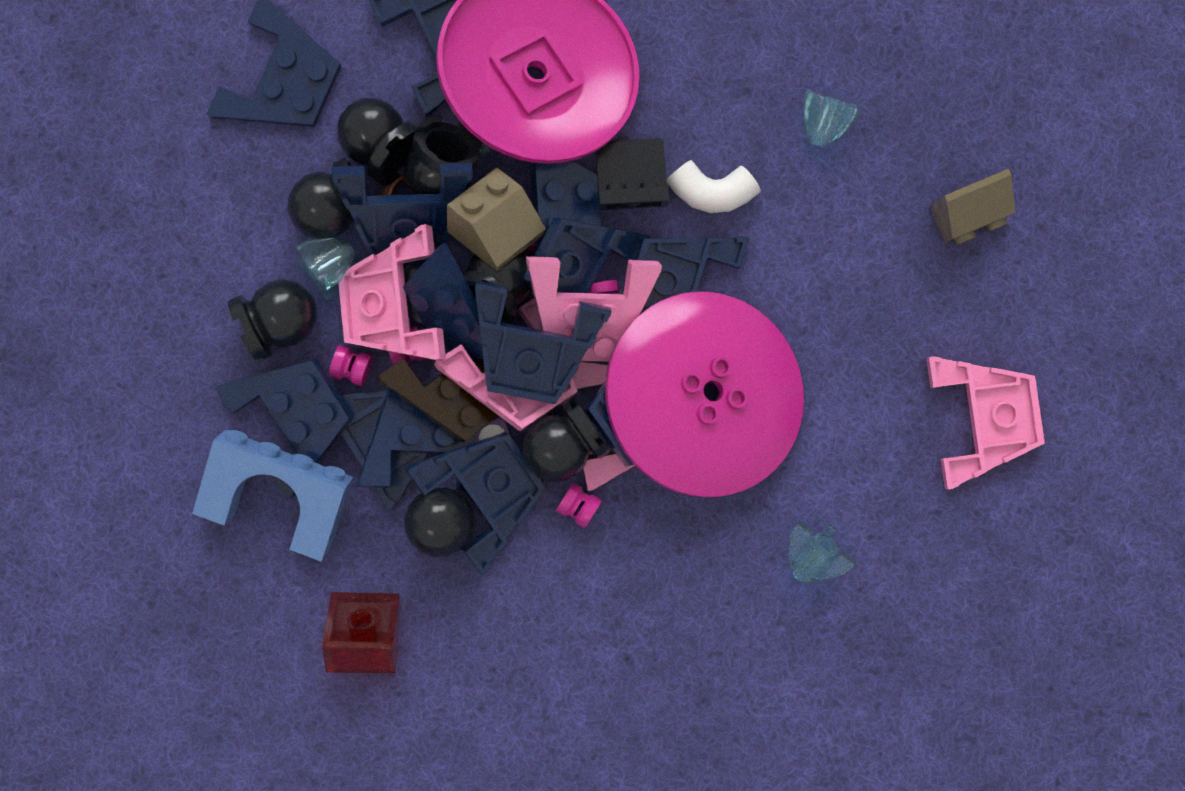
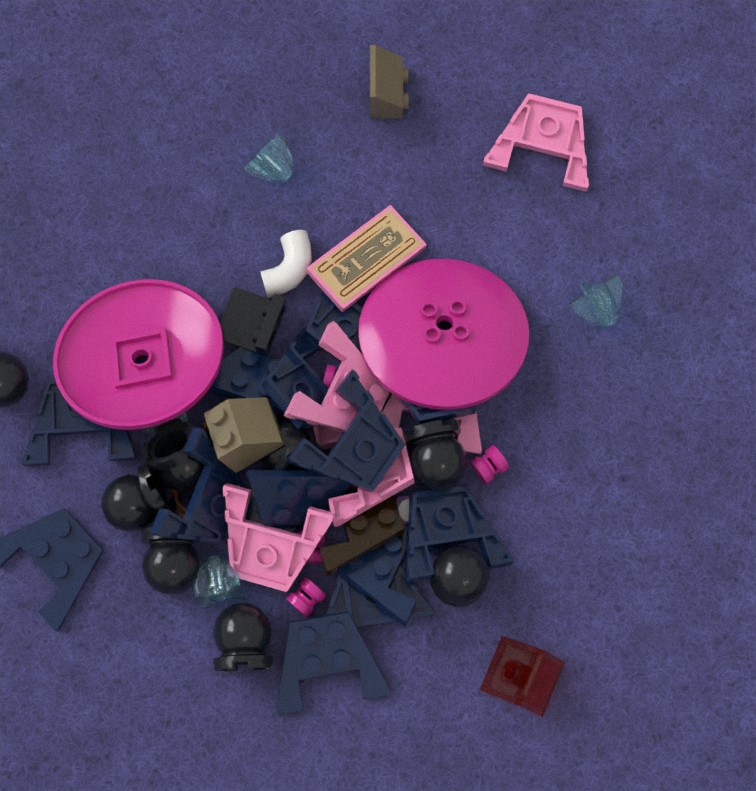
camera: 65 degrees left, 10 degrees down
(319, 488) = (344, 713): medium blue arch -> none
(758, 271) = (366, 258): none -> tile

